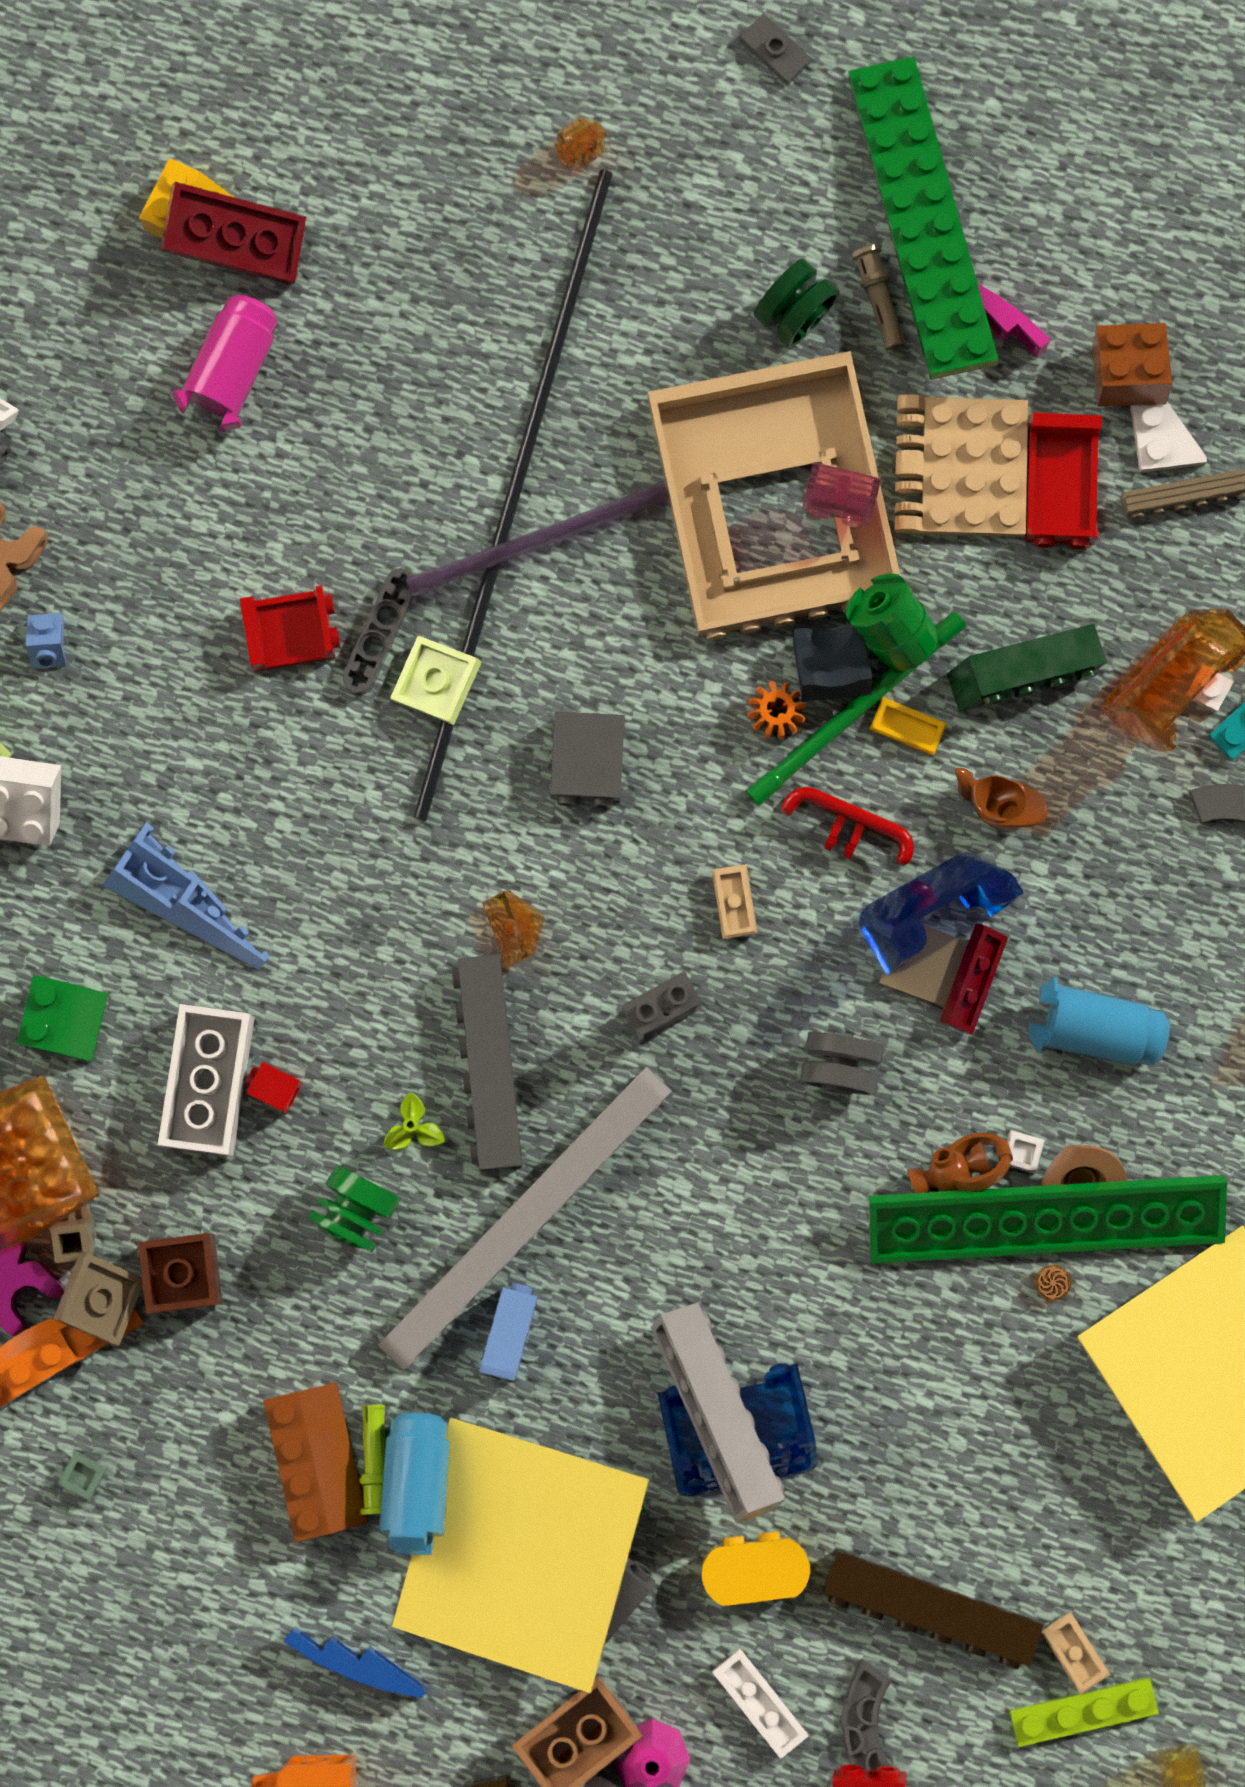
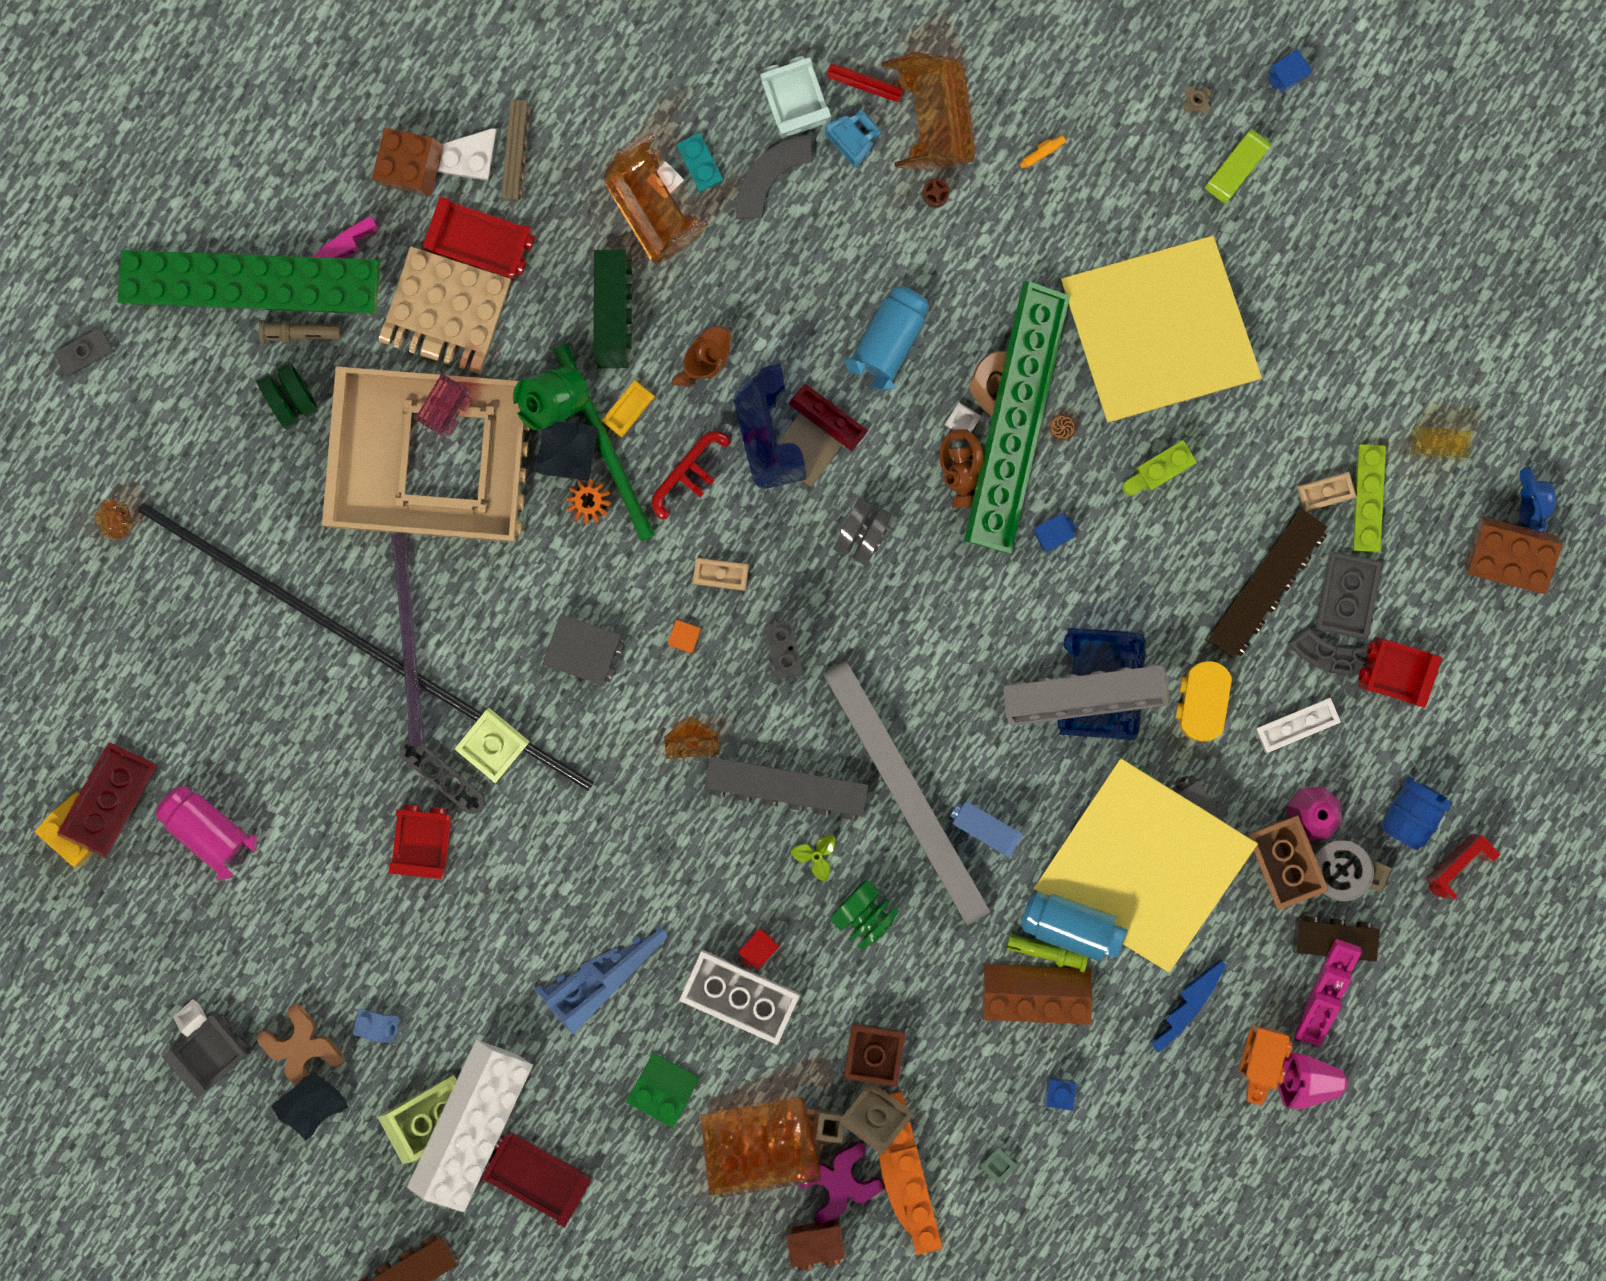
camera: 70 degrees left, 5 degrees up
(196, 1528) = (1060, 1093): none -> blue brick
(642, 879) = (684, 636): none -> orange tile
(915, 1311) = (1054, 532): none -> blue brick
(948, 1721) = (1348, 595): none -> dark grey tile
(1037, 1424) = (1160, 469): none -> lime brick

